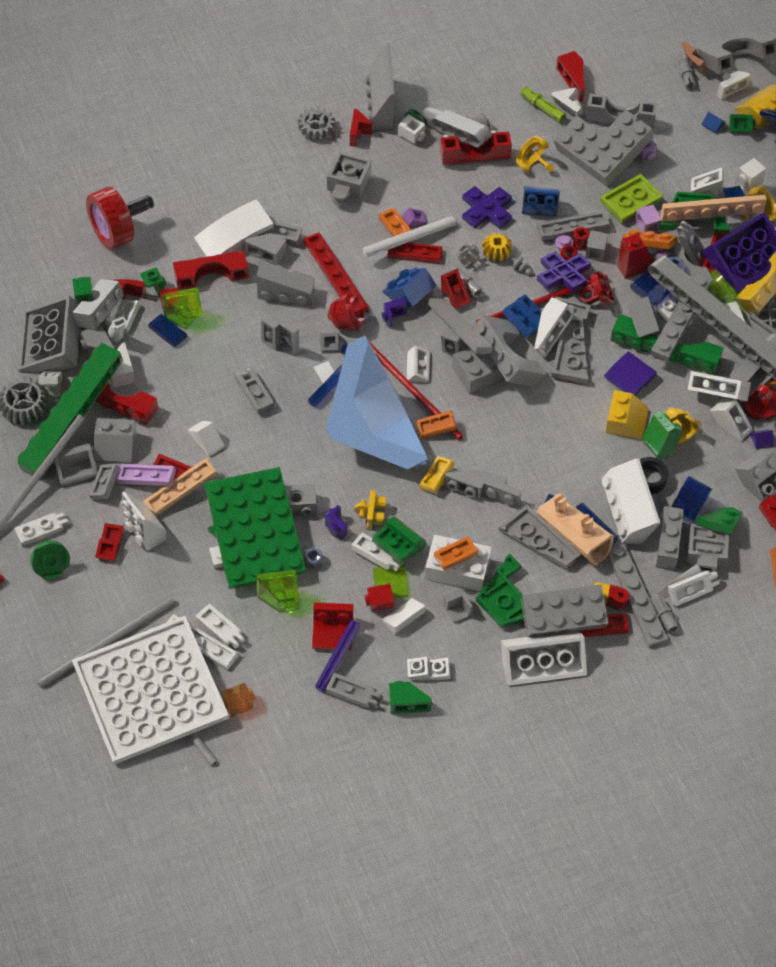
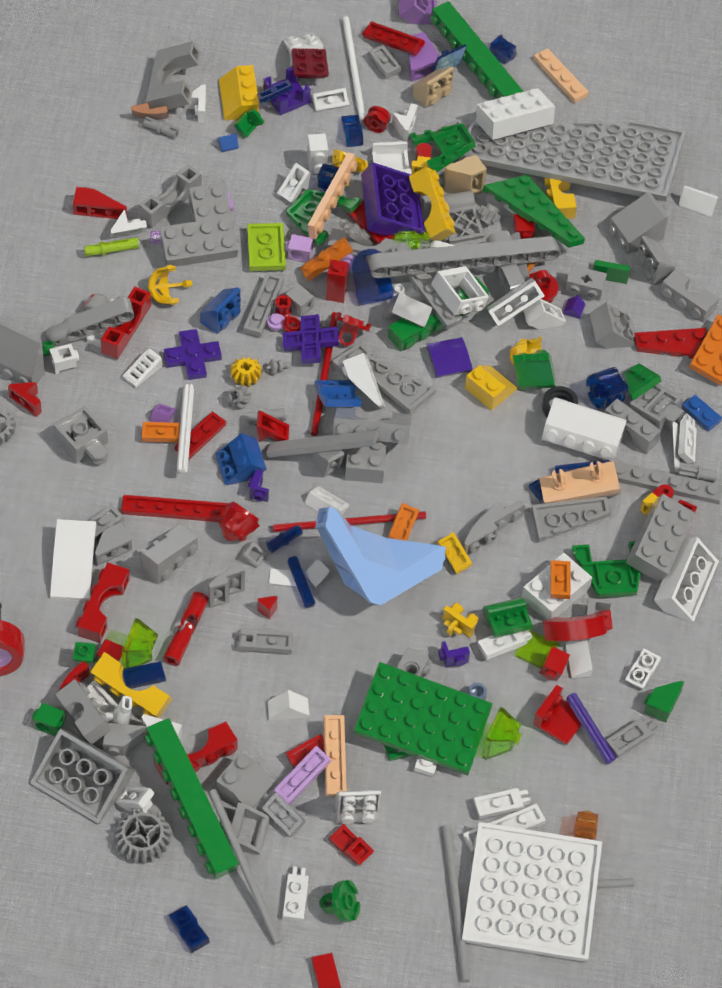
camera: 60 degrees left, 0 degrees up
(146, 305) = (111, 672): none -> yellow arch
(213, 335) = (181, 639): none -> red piece
(288, 375) = (267, 605): none -> red slope
(423, 594) = (578, 627): none -> red arch
(454, 187) = (149, 358): none -> white slope
(705, 331) = (460, 276): none -> white window
(733, 587) = (701, 413): none -> blue plate

